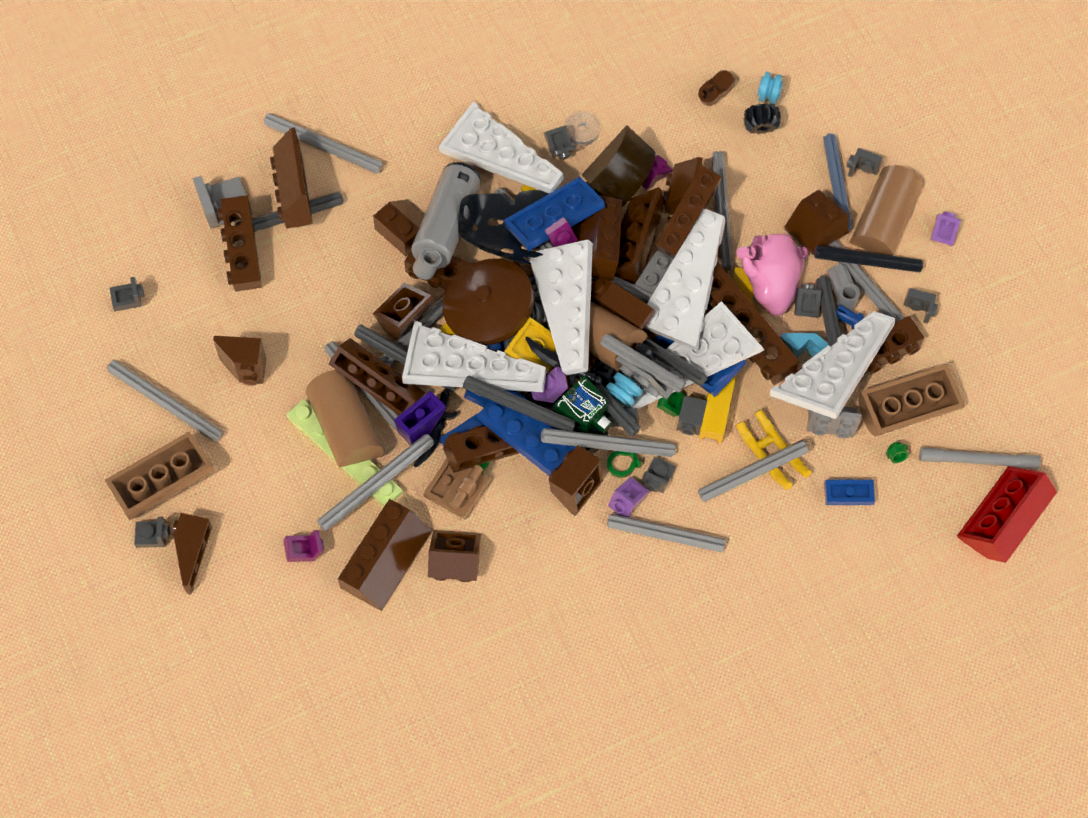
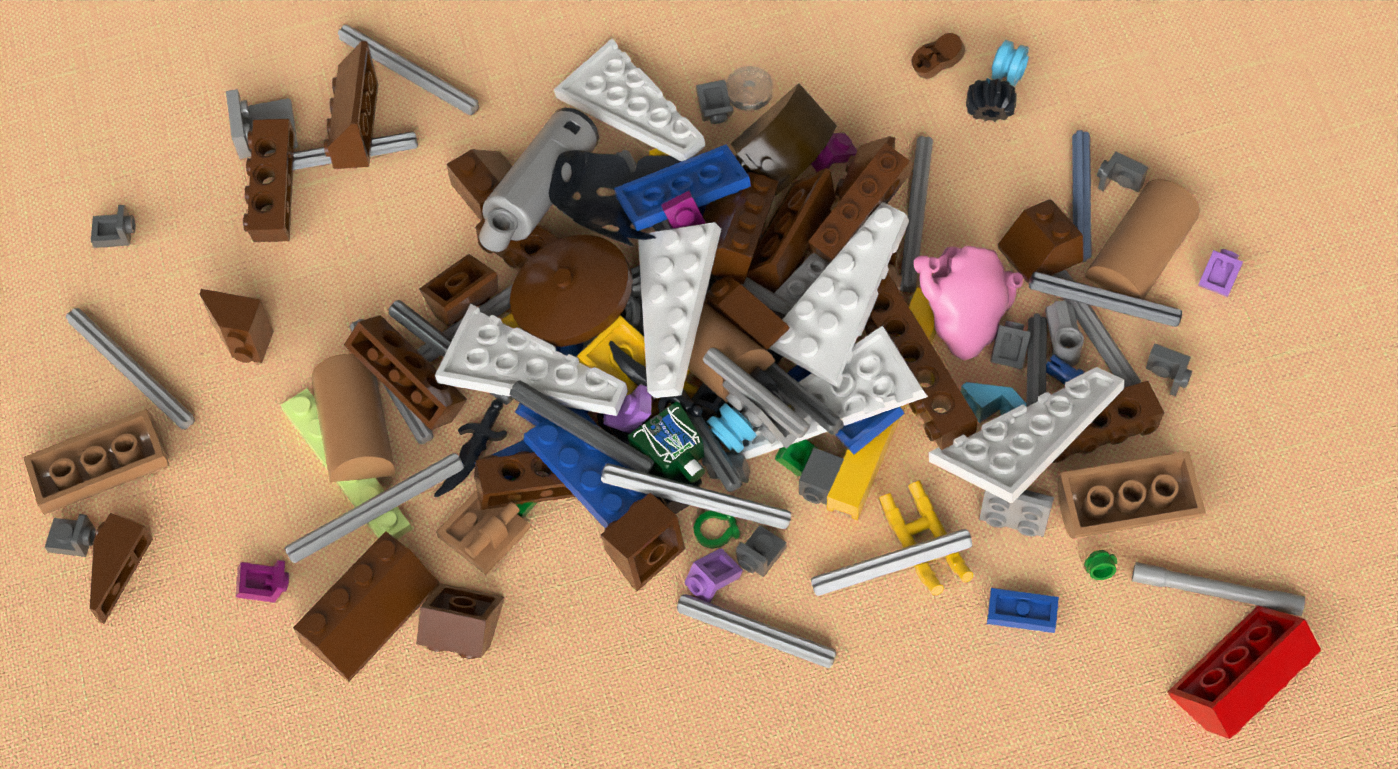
camera: 15 degrees right, 5 degrees down
(420, 418) = (451, 430): dark purple slope -> none

